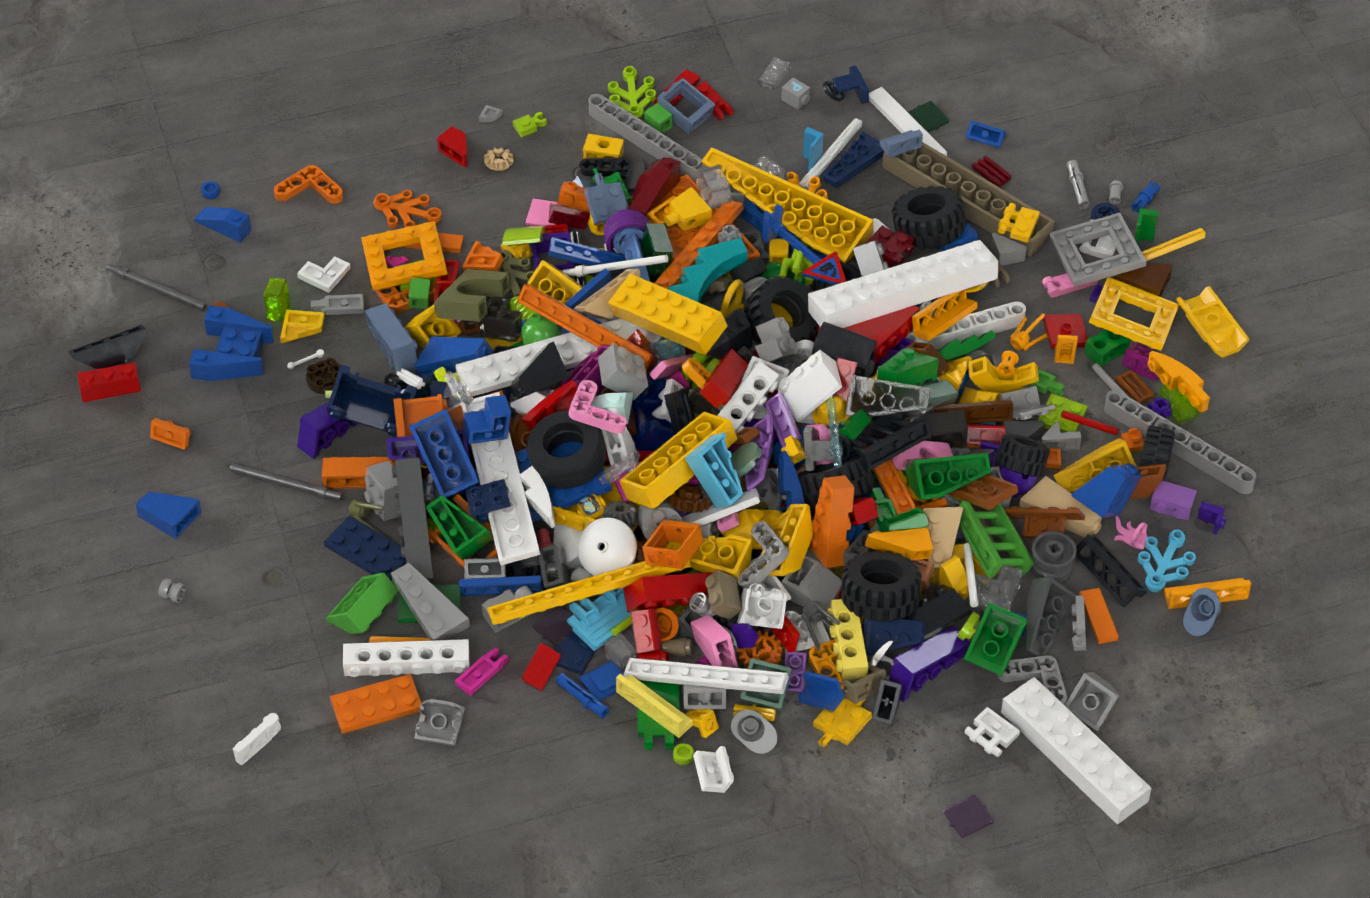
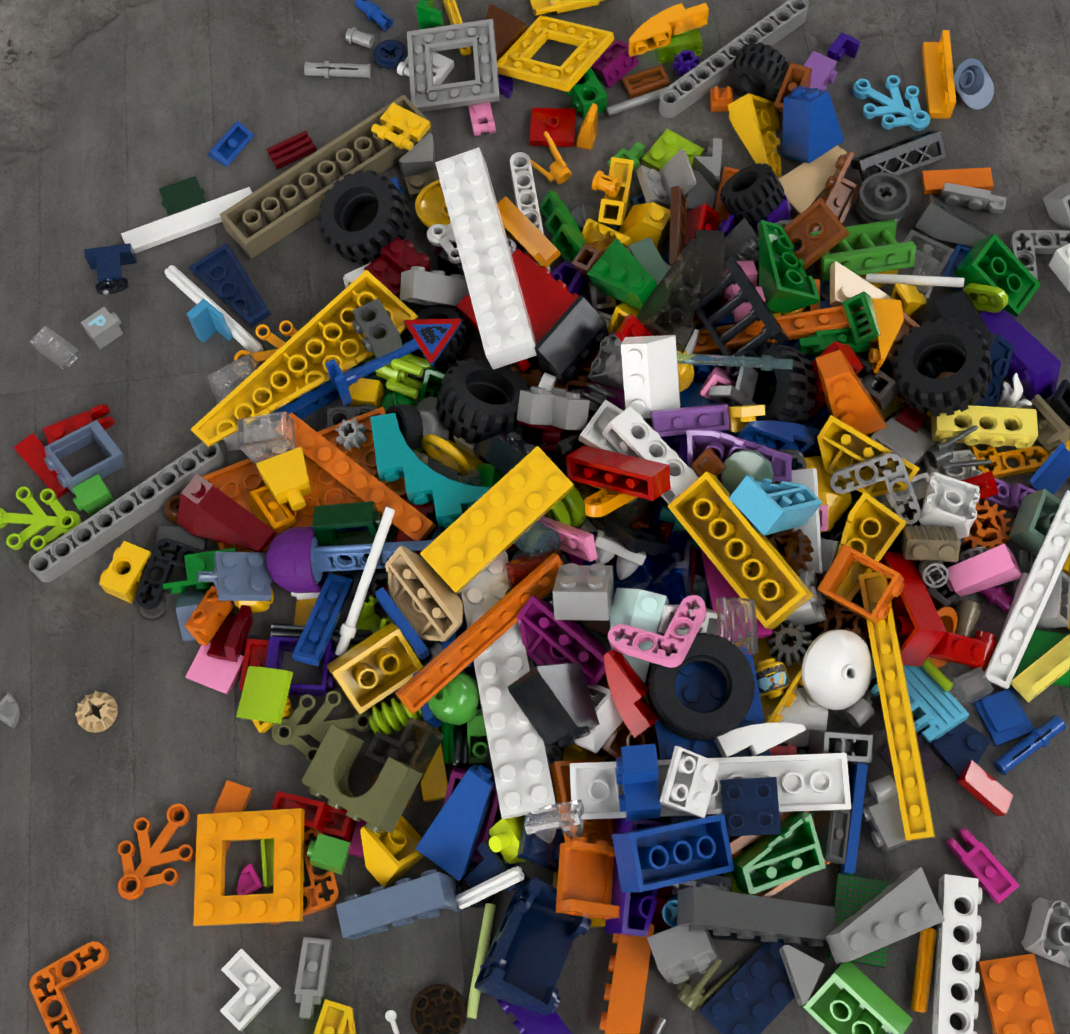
camera: 75 degrees left, 15 degrees up
(381, 559) = (802, 972): none -> light grey slope
(393, 380) = (476, 913): black pin -> none
(453, 145) = (57, 766): red slope -> none
(483, 258) = (282, 759): orange wing -> none
(492, 444) = (689, 783): none -> white slope
(528, 125) = (45, 663): lime plate -> none
(744, 635) = (978, 535): dark purple slope -> none
(819, 231) = (375, 323): none -> dark grey brick
(854, 425) = (709, 342): green slope -> none
(902, 143) = (238, 220): sand blue panel -> none
(1089, 422) = (690, 139): red bar -> none
(1132, 536) = (856, 124): bright pink piece -> none

